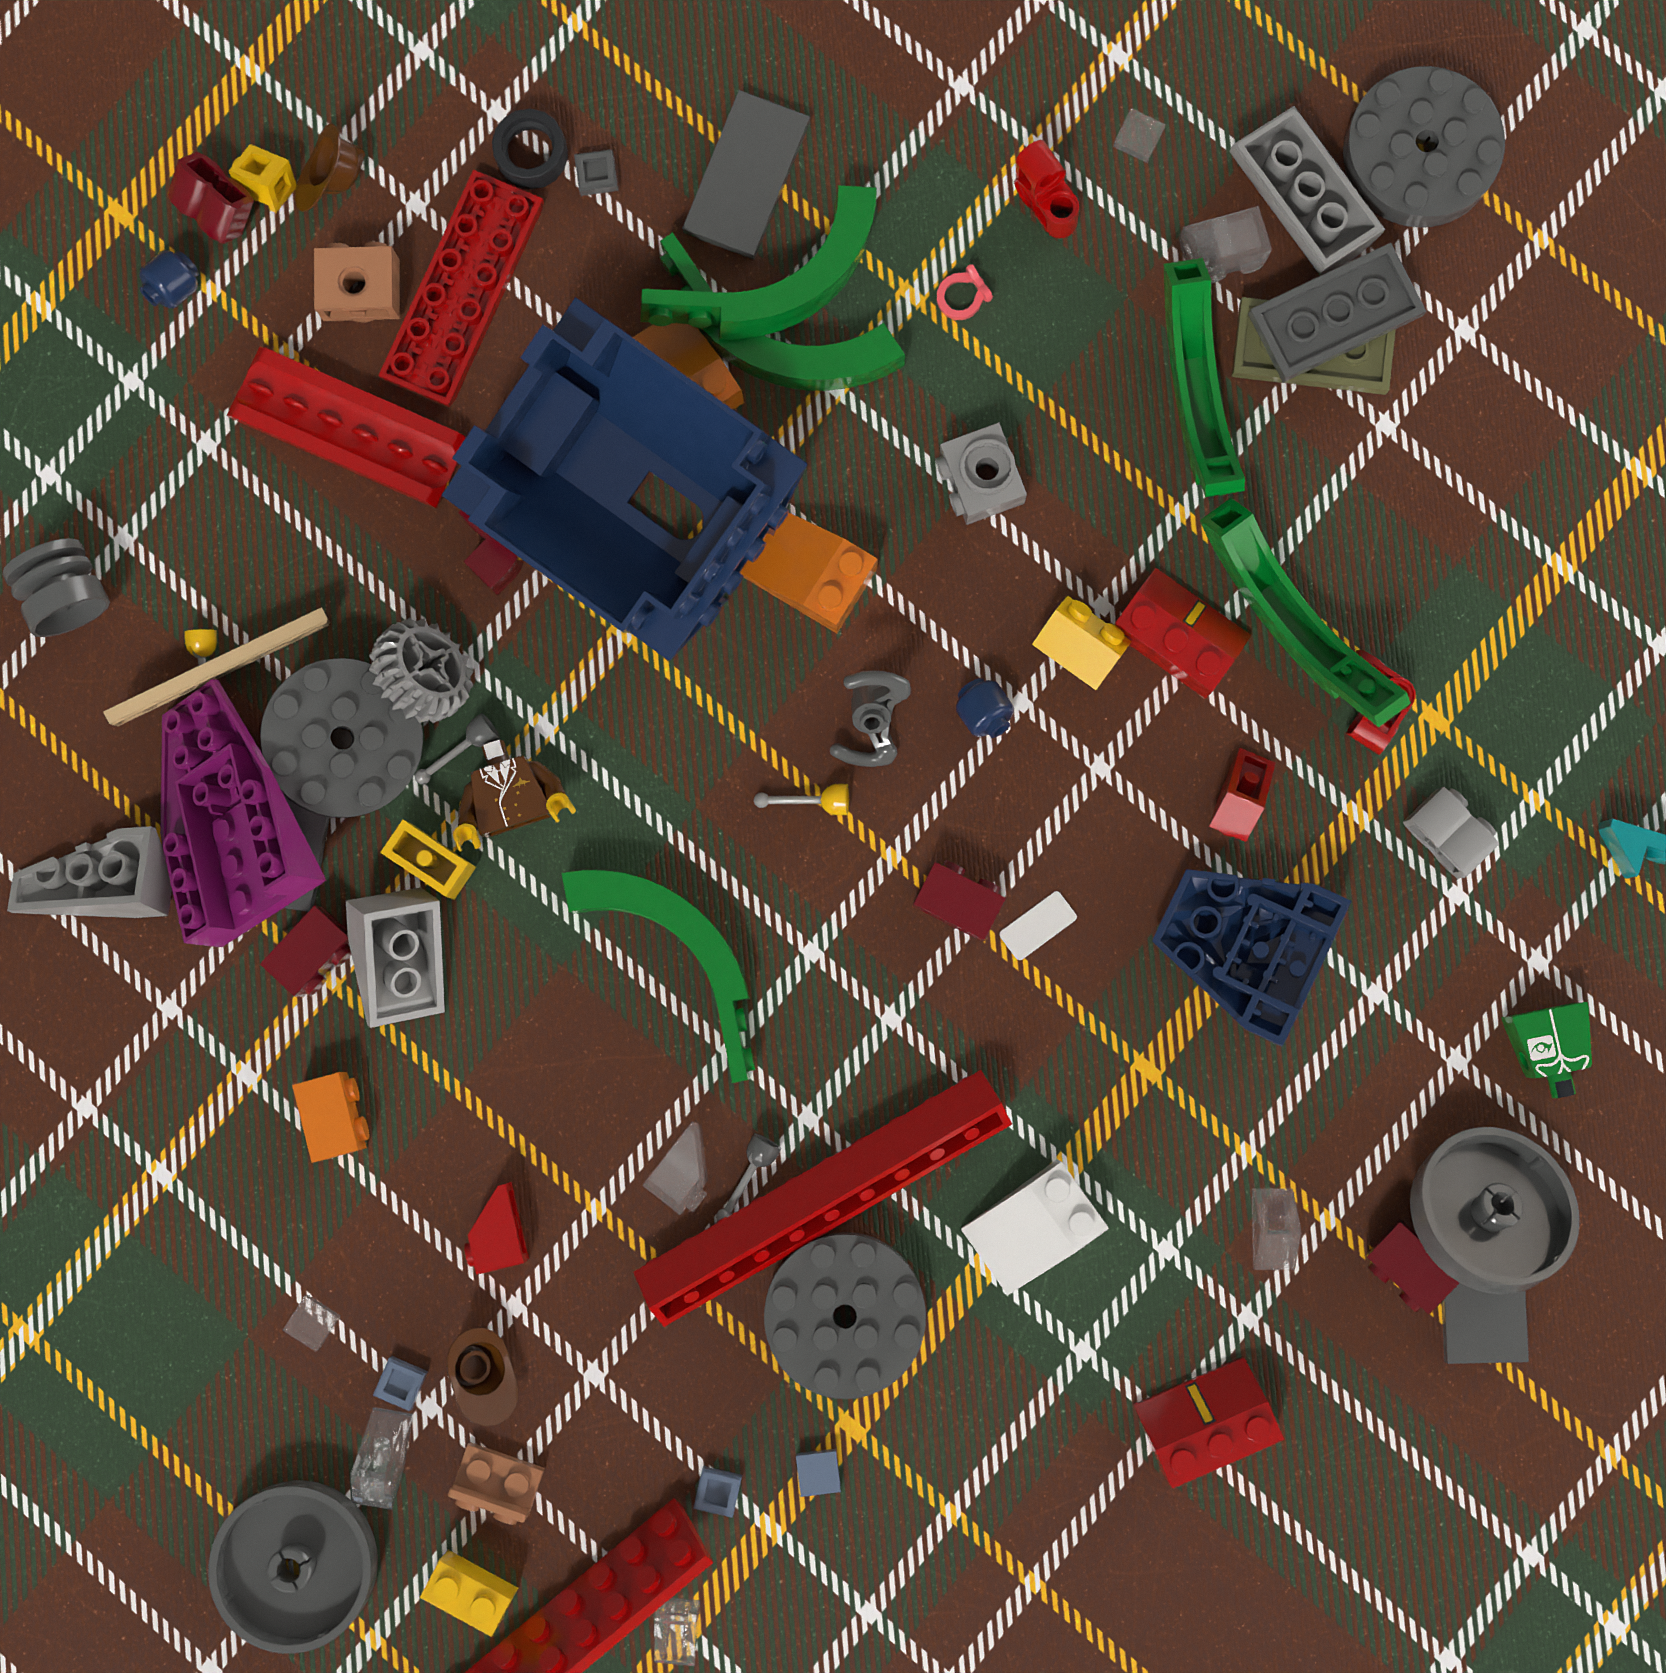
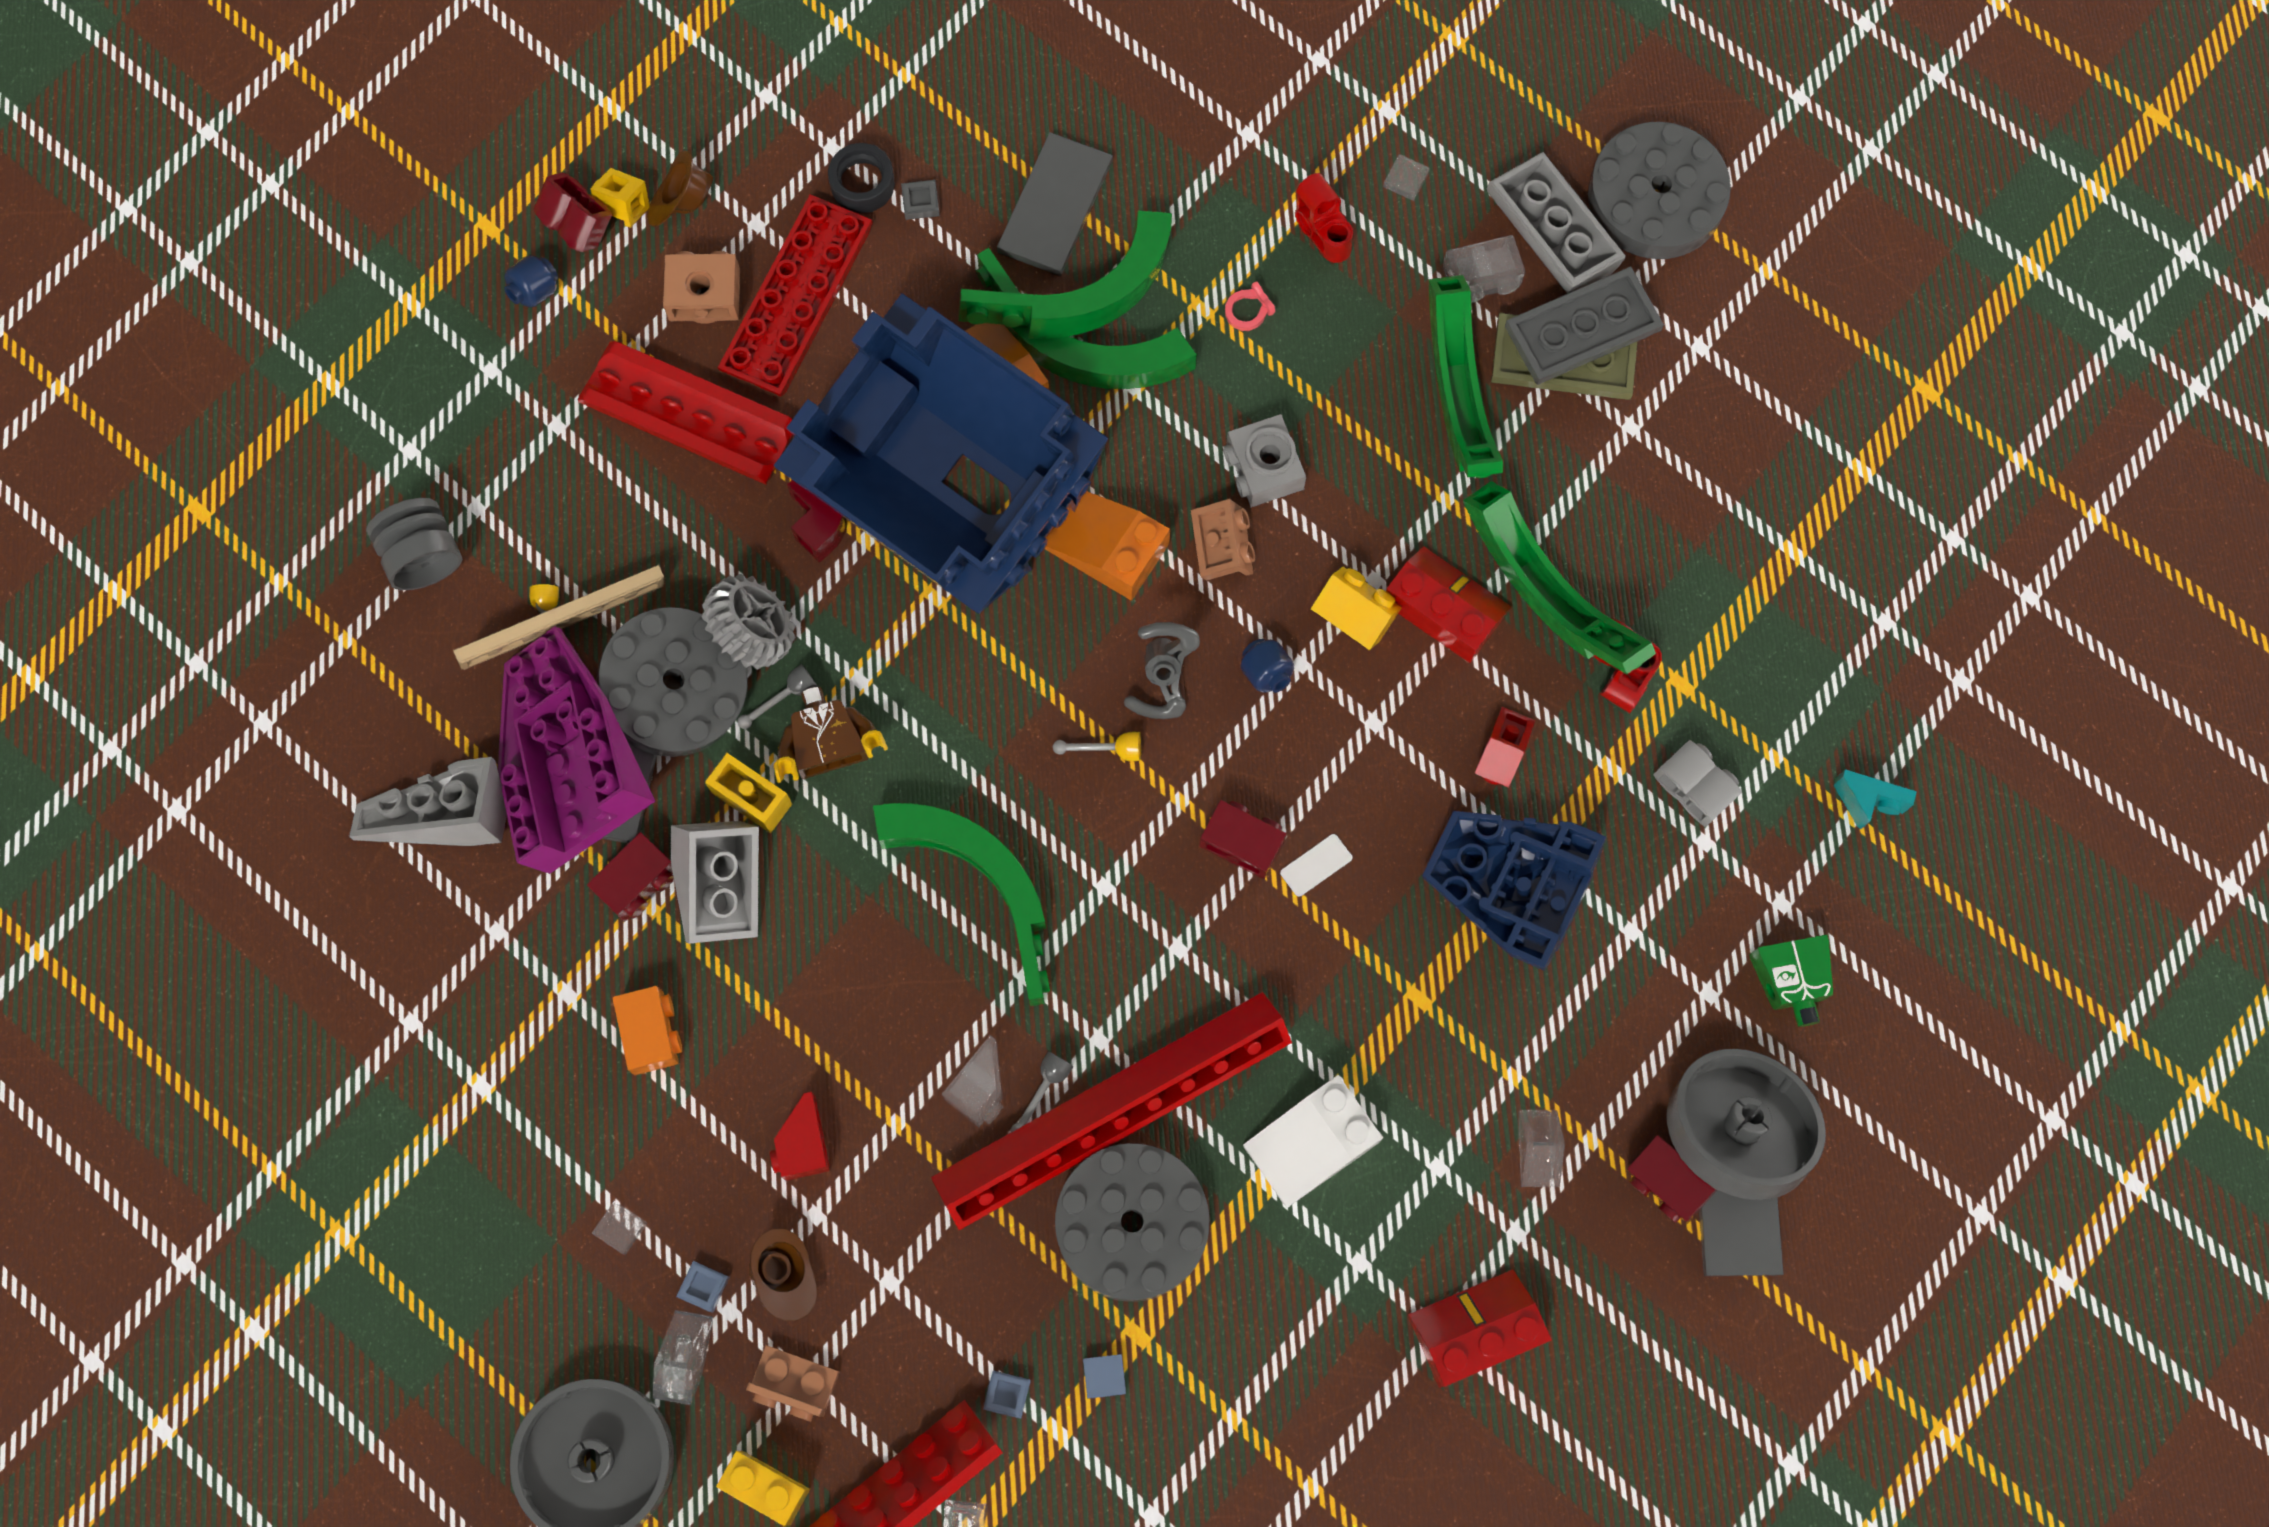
camera: 10 degrees left, 10 degrees down
(935, 565) = (1222, 539): none -> nougat bracket

